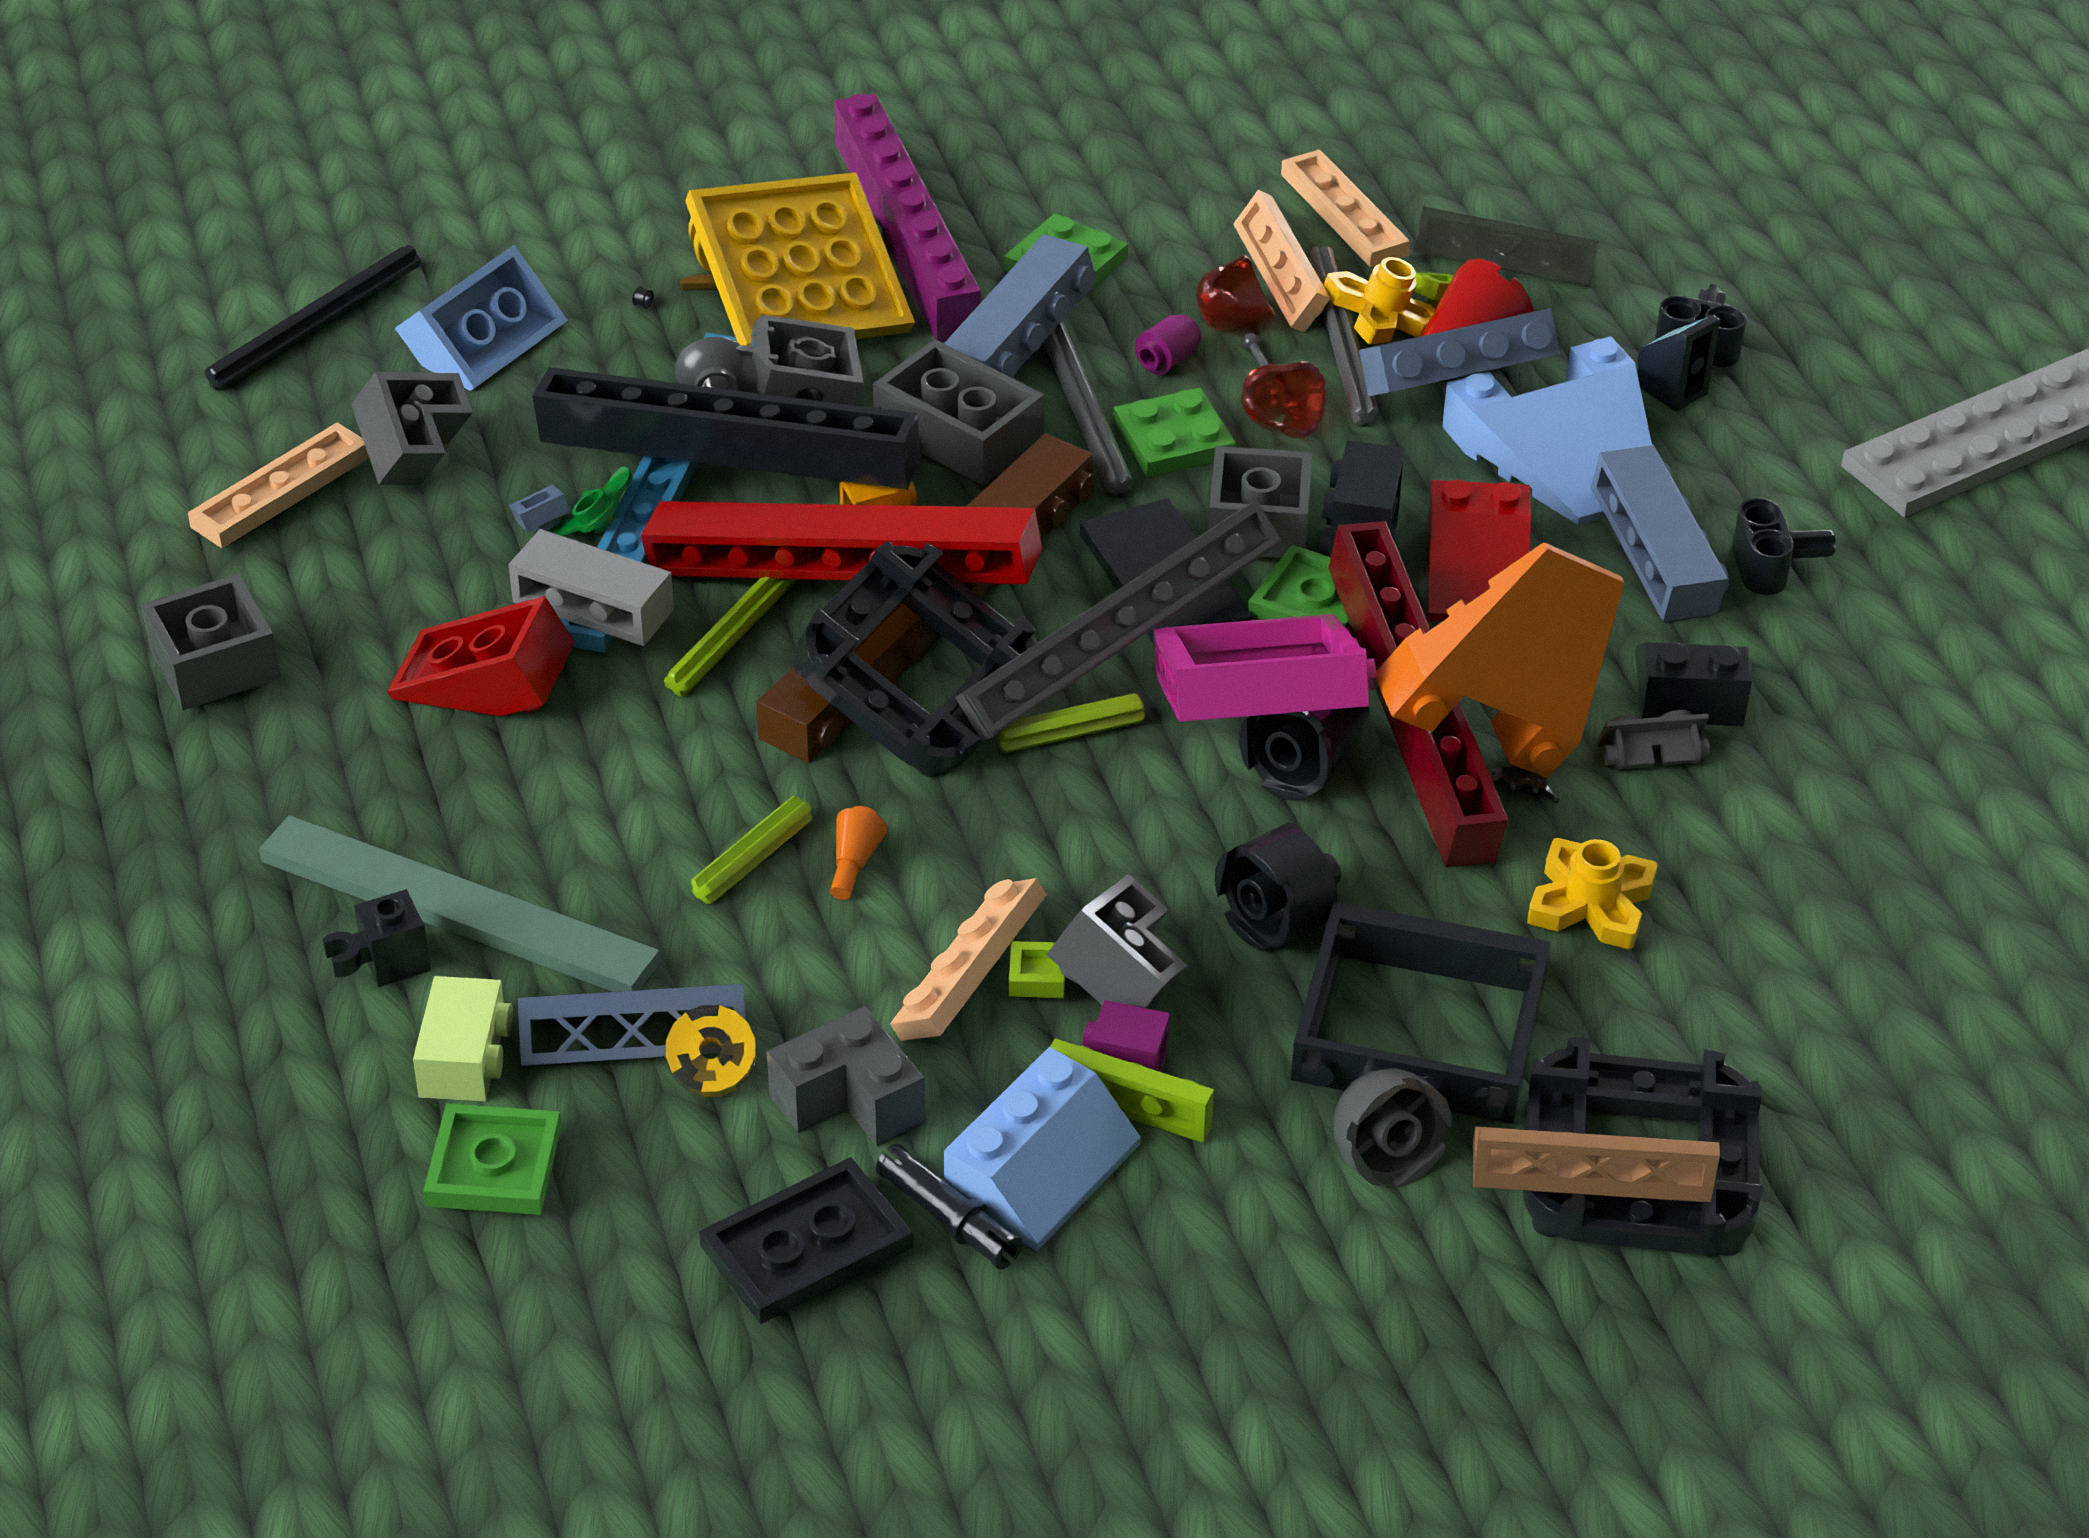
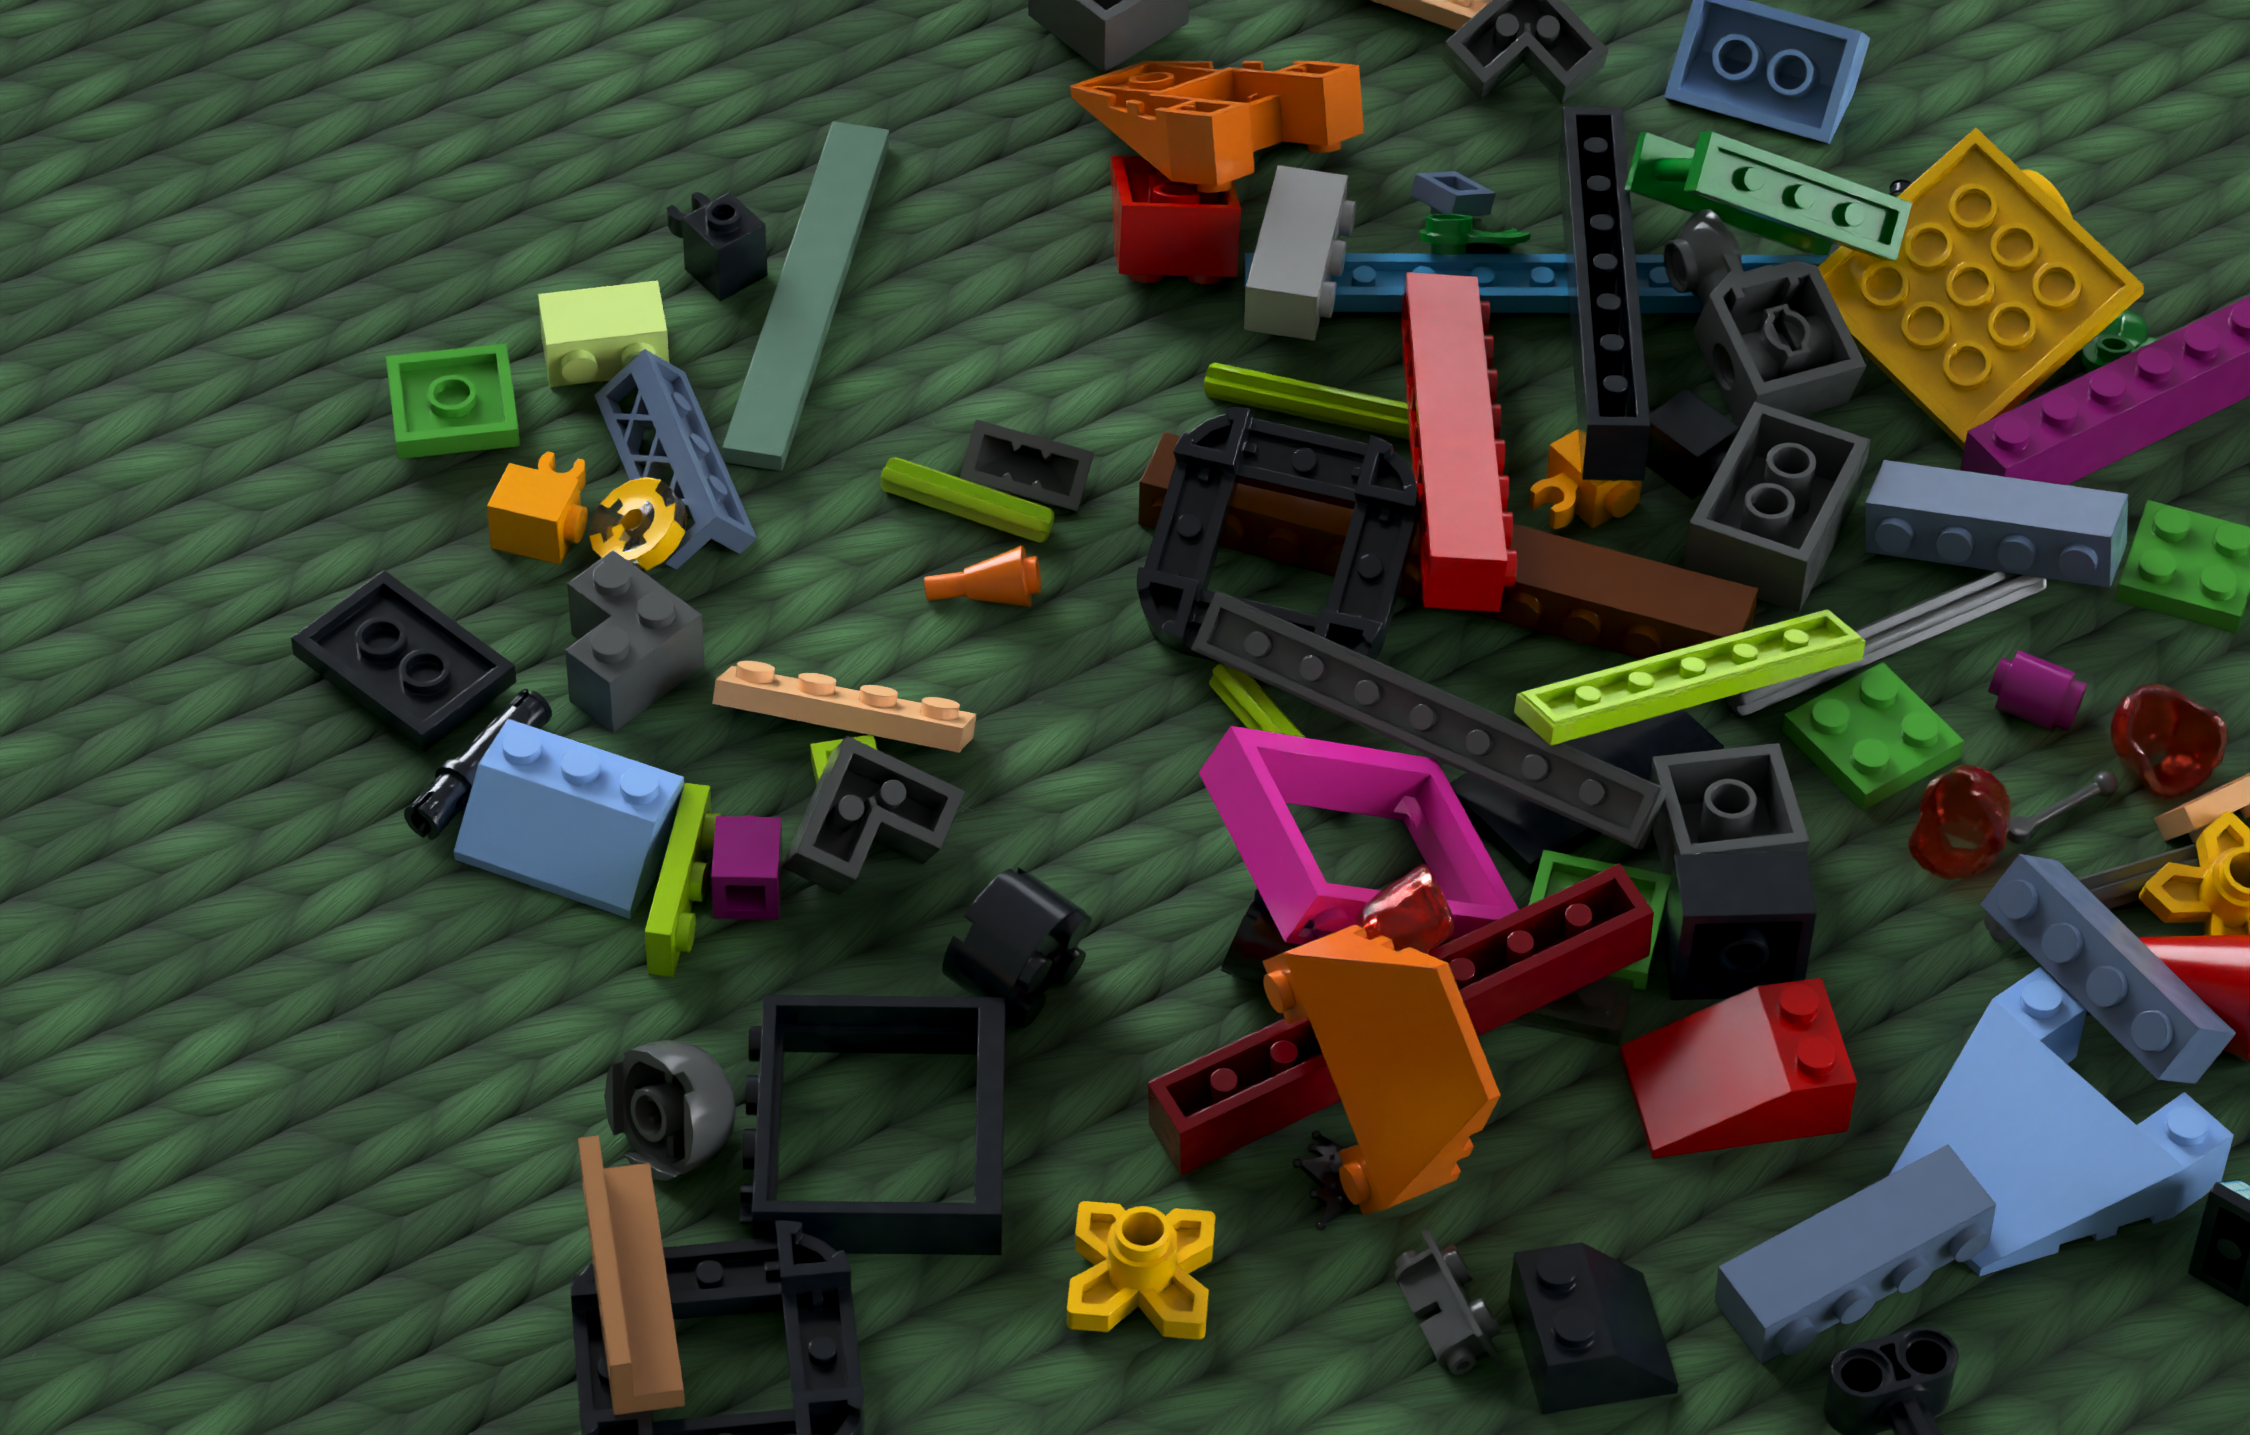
camera: 75 degrees right, 5 degrees up
(398, 605) = (1209, 121): none -> orange wedge
(661, 1117) = (538, 510): none -> light orange brick
(715, 289) = (1768, 195): none -> green fence
(738, 799) = (1026, 465): none -> dark grey slope
(1134, 478) = (1688, 677): none -> lime tile
(1387, 615) = (1409, 913): none -> clear red hair

